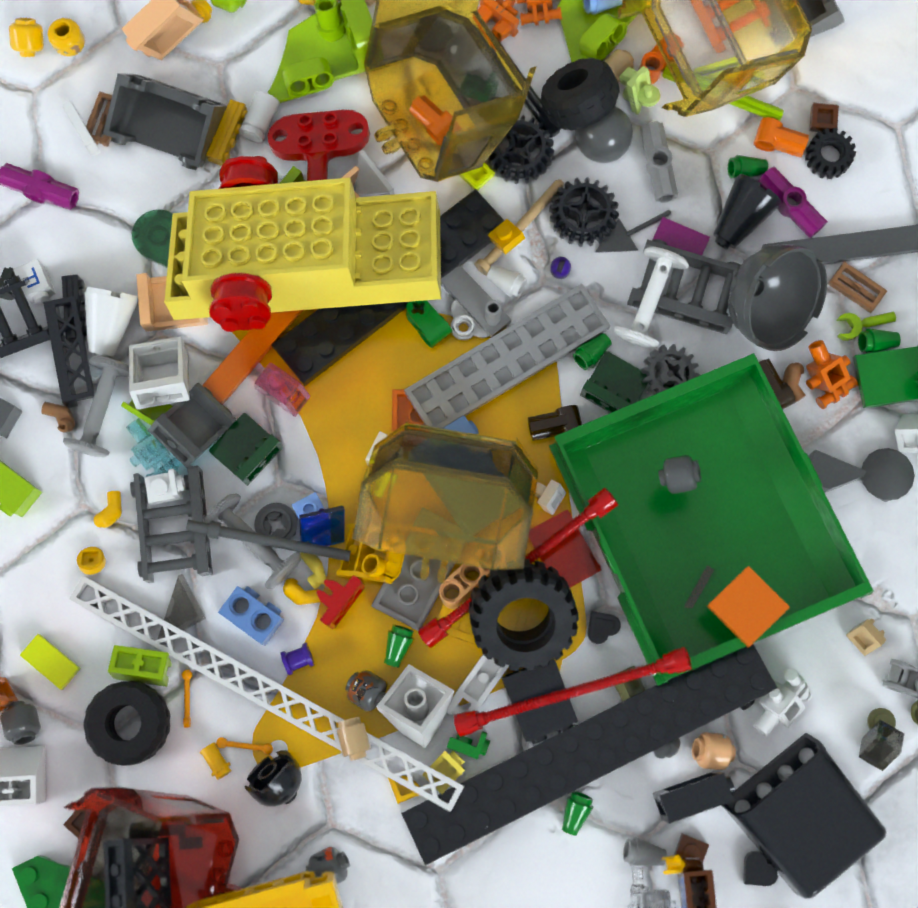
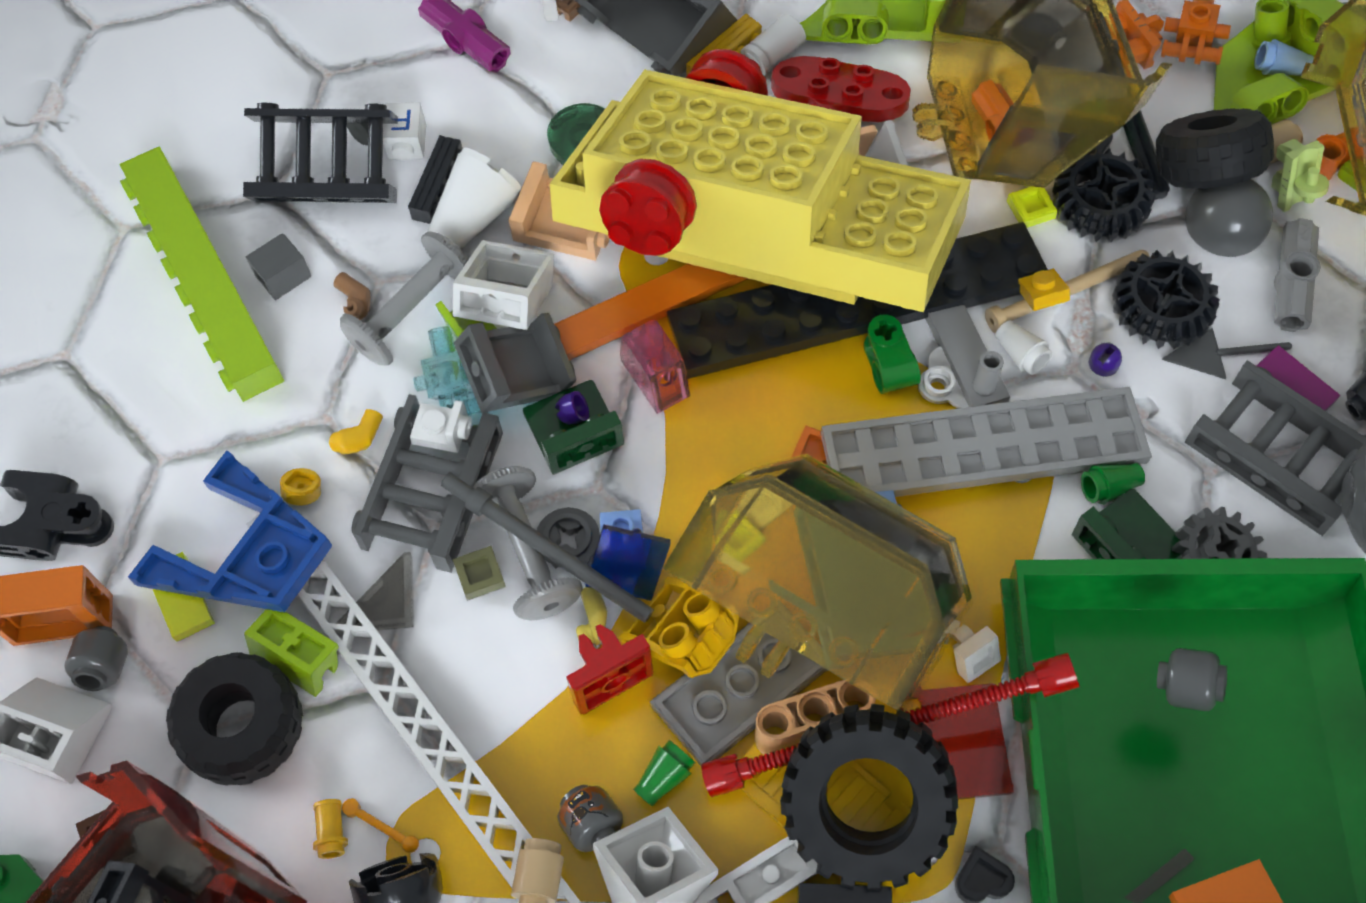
camera: 25 degrees right, 15 degrees down
(60, 352) = (397, 216): black fence -> none
(98, 620) = (264, 566): none -> blue wing
(187, 675) = (349, 692): light orange hinge -> none
(231, 569) = (479, 573): none -> olive plate
(242, 439) = (572, 408): none -> dark purple hinge
(248, 620) = (473, 646): medium blue brick -> none
(297, 658) = (511, 731): dark purple bush -> none
(298, 594) = (554, 644): yellow arm -> none
(554, 423) = (1000, 551): dark brown piece -> none
(651, 297) = (1262, 385): white hose -> none

